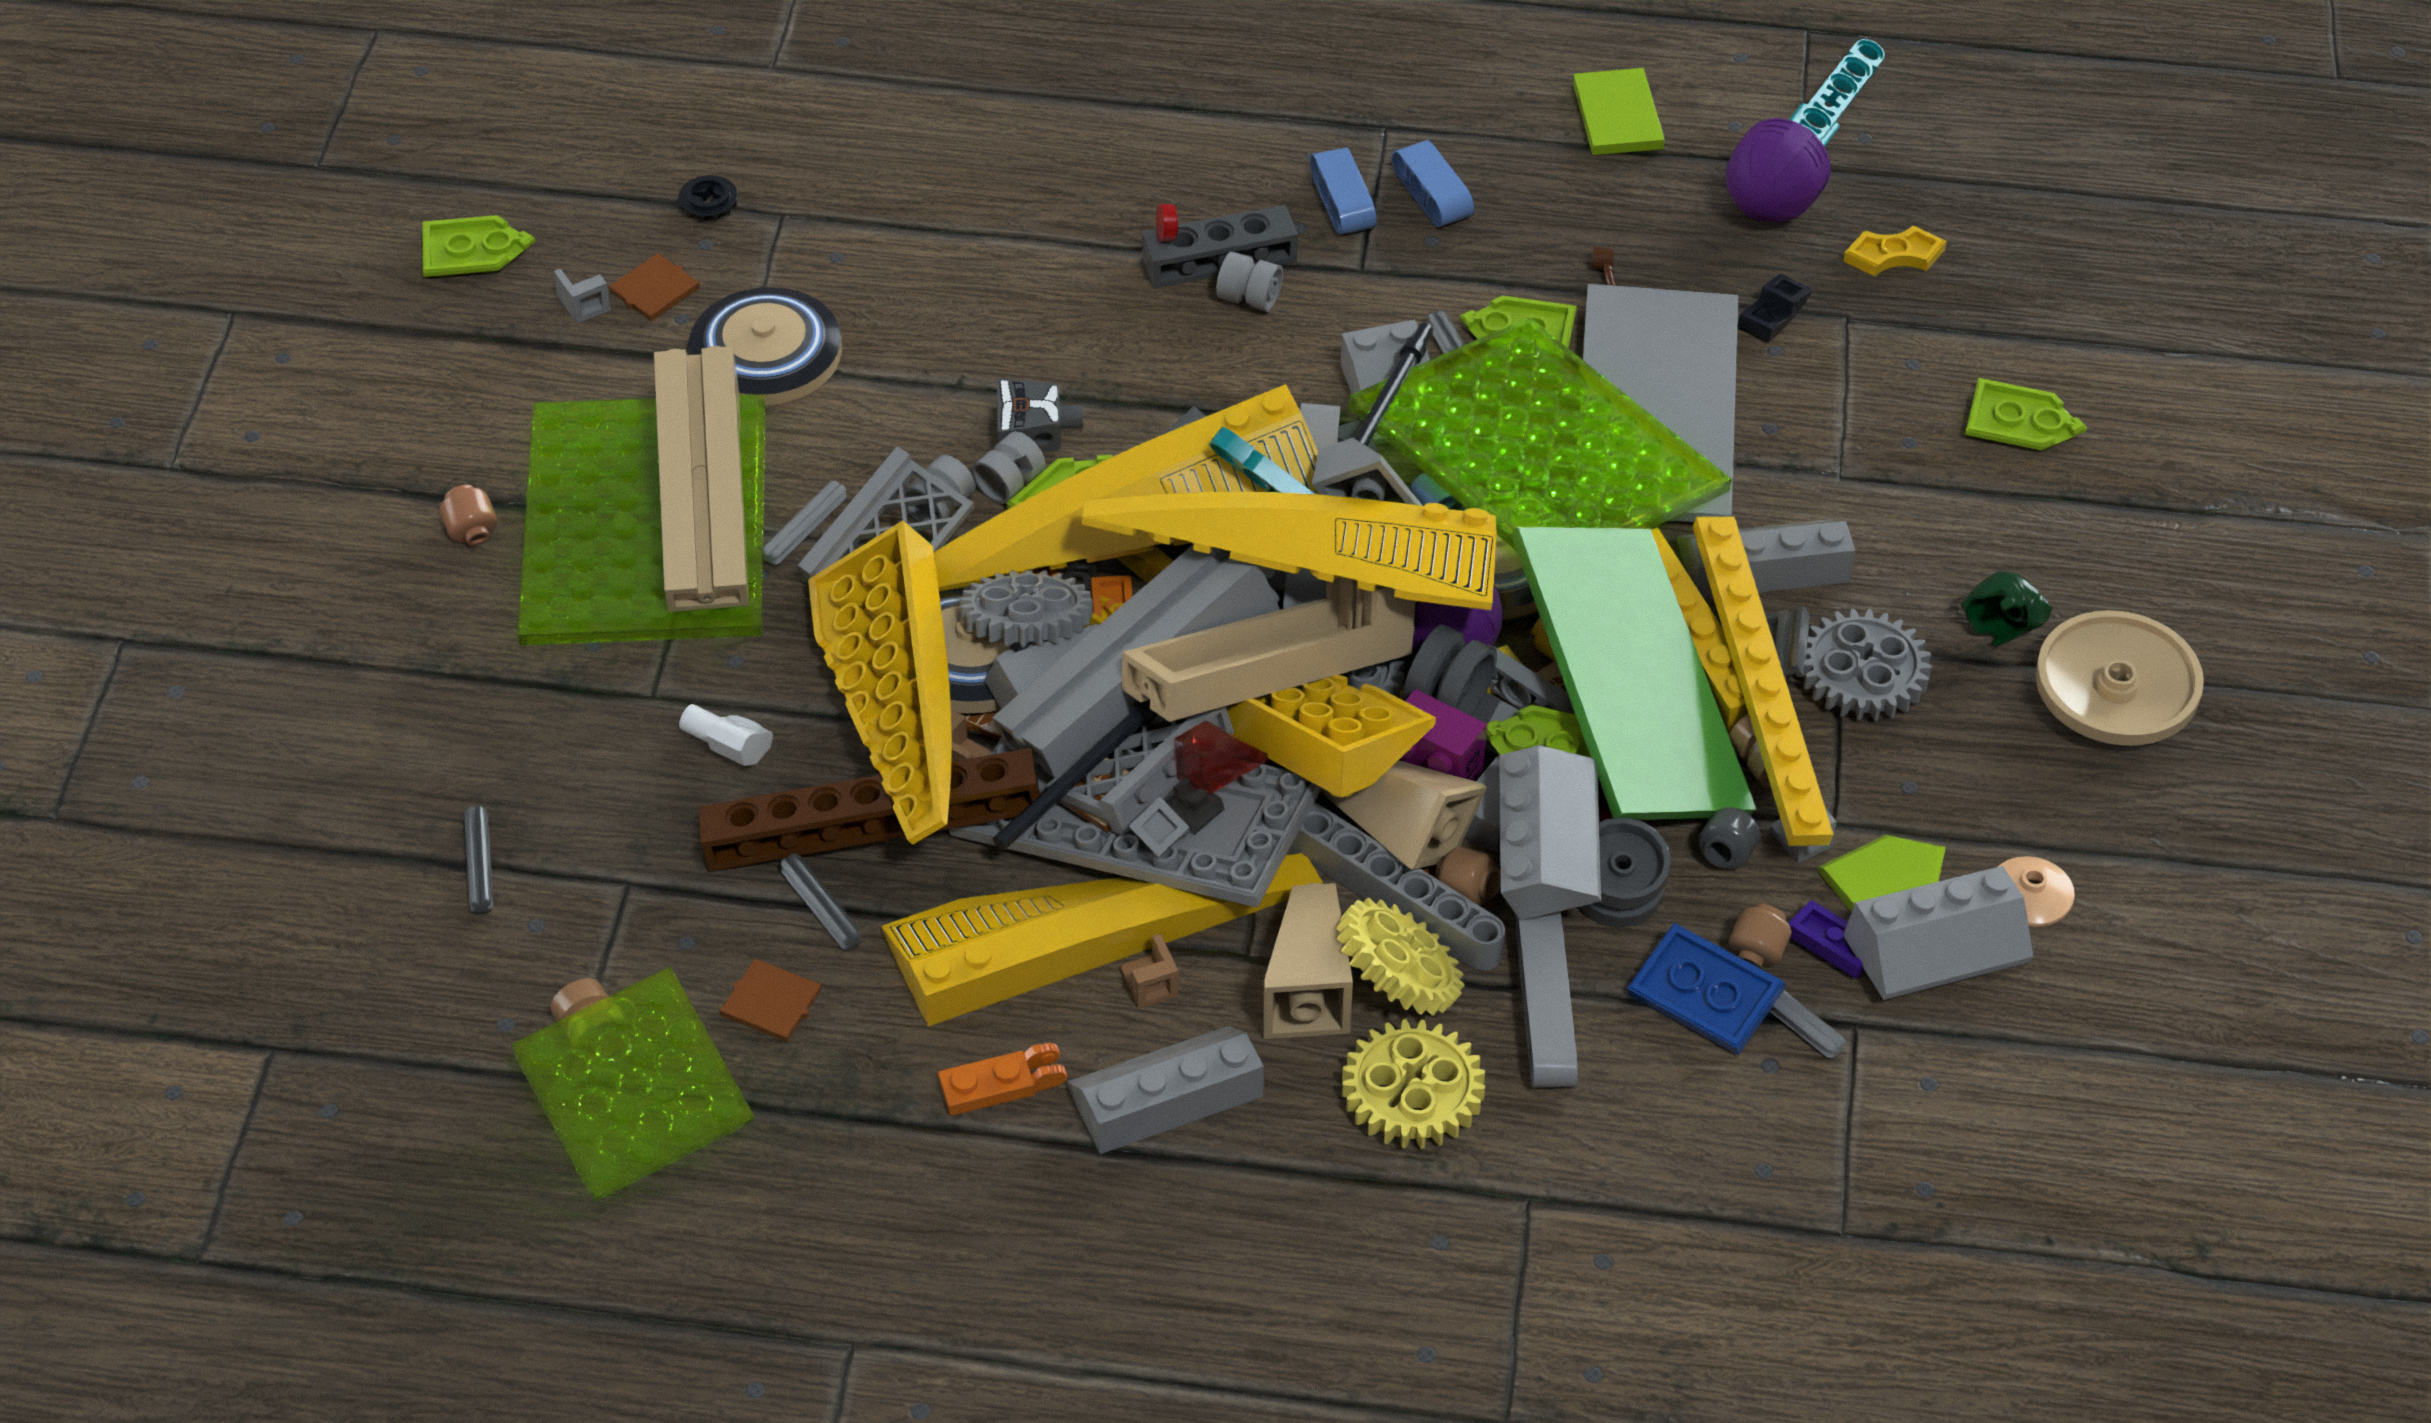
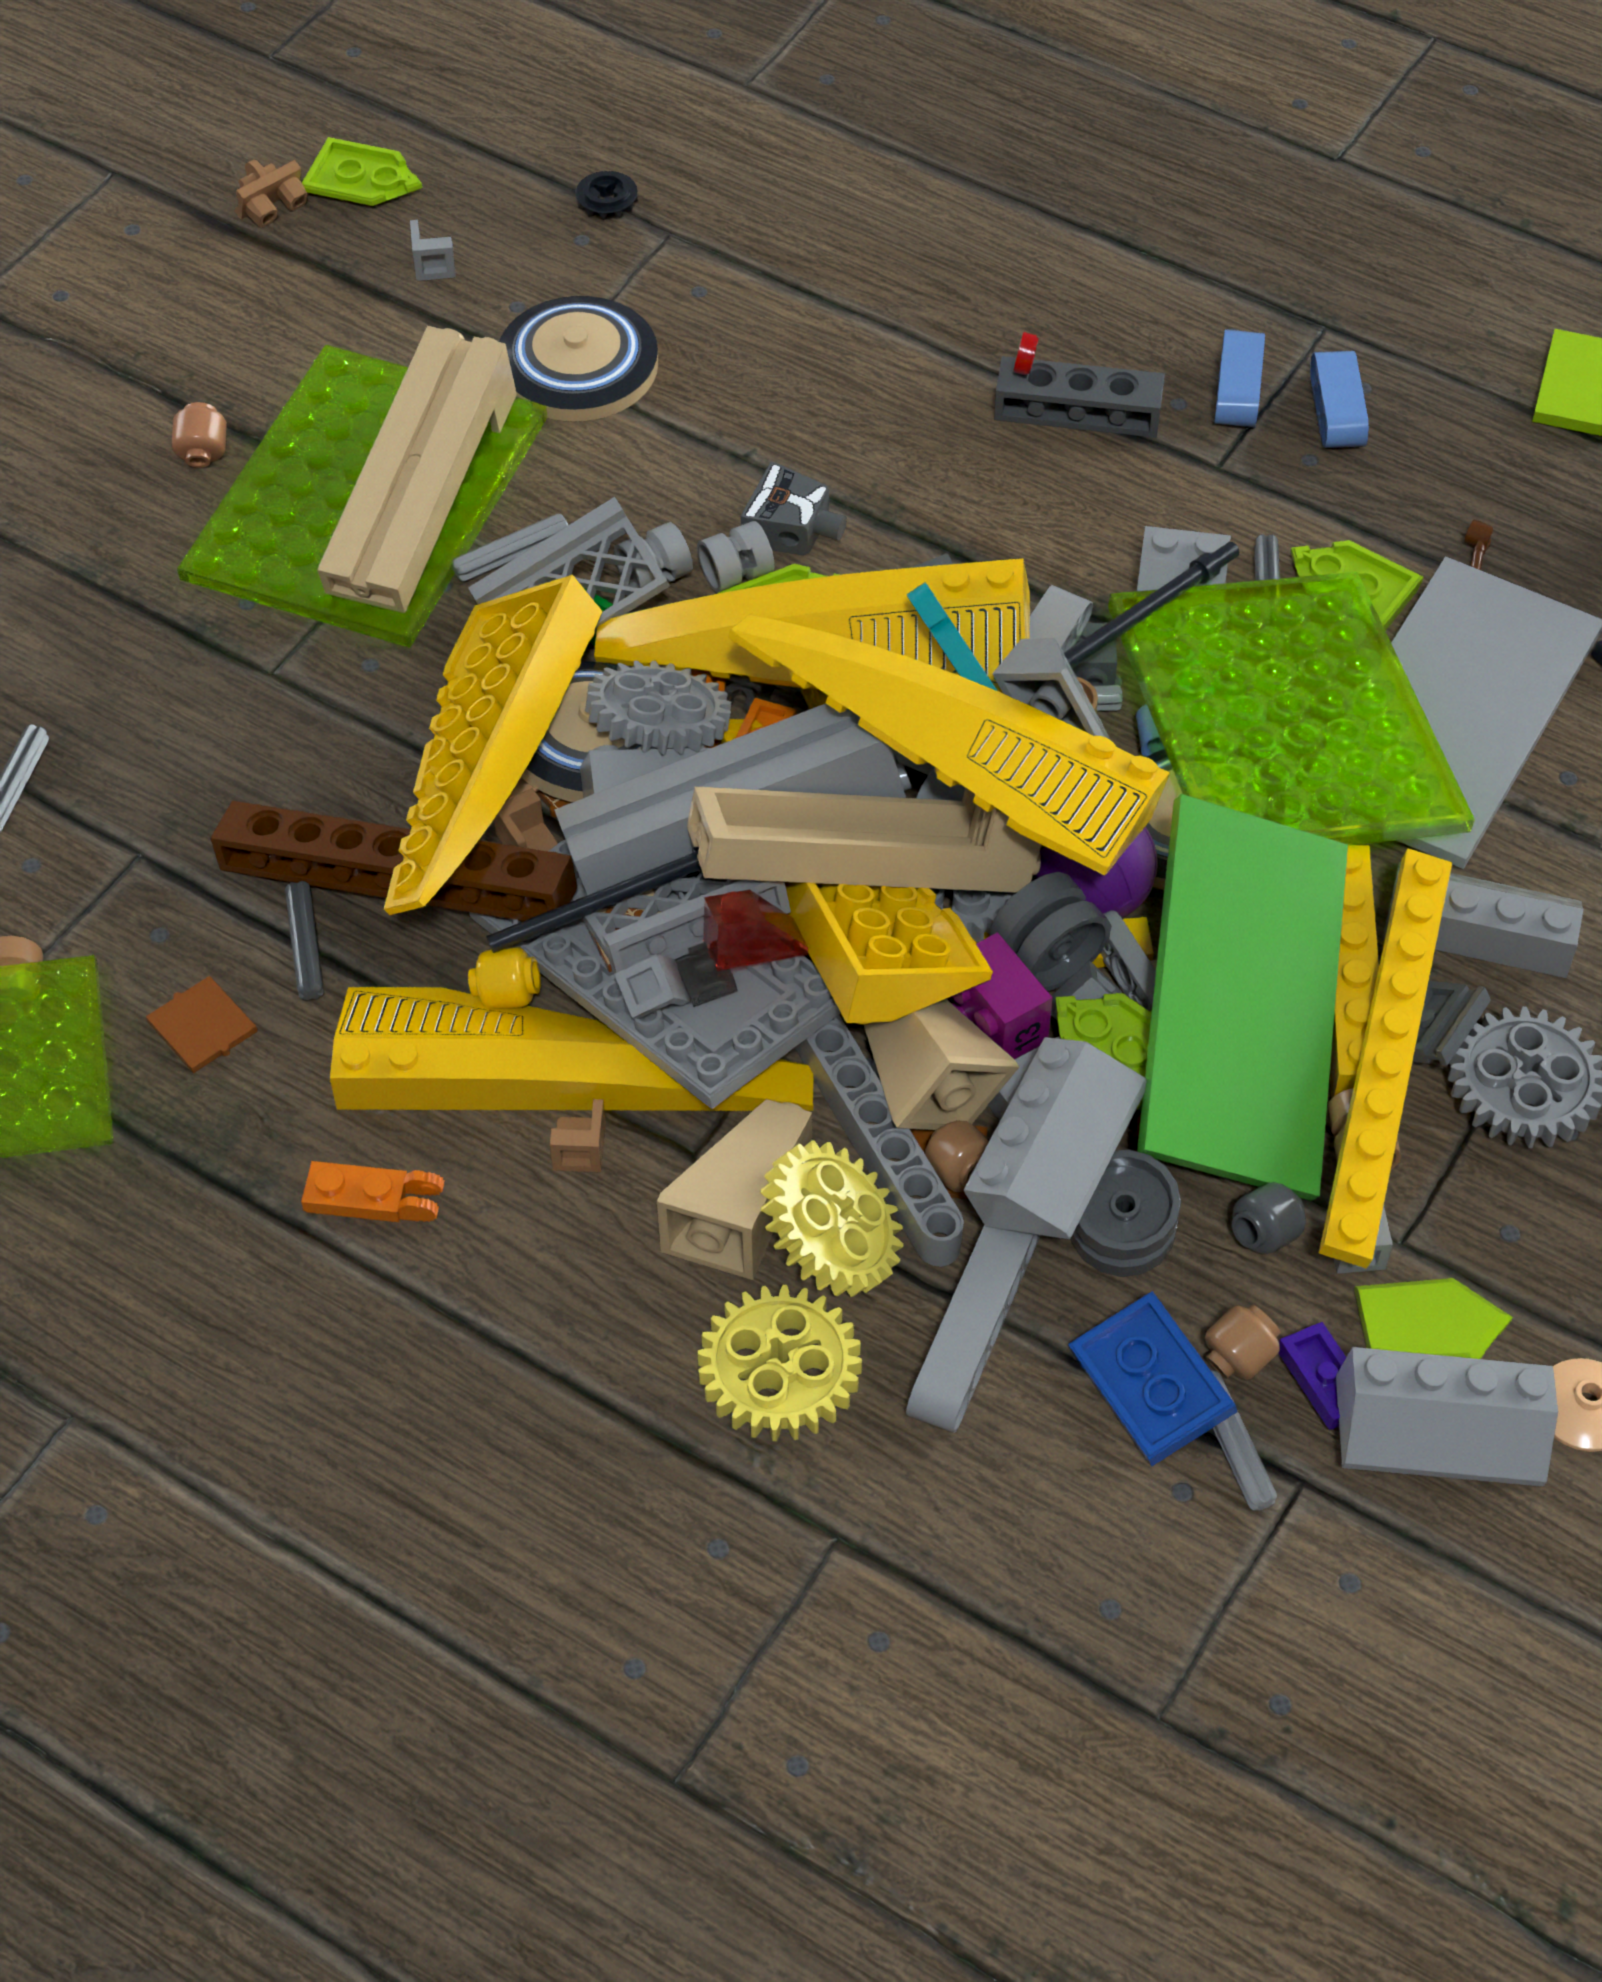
camera: 25 degrees right, 5 degrees up
(395, 282) = (266, 186): none -> medium nougat hips
(654, 287) = (507, 267): dark orange piece -> none
(728, 736) = (312, 740): white piece -> none
(1018, 869) = (505, 978): none -> yellow head
(1168, 1088) = (526, 1267): light grey slope -> none
(1249, 281) = (1087, 442): light grey wheel -> none

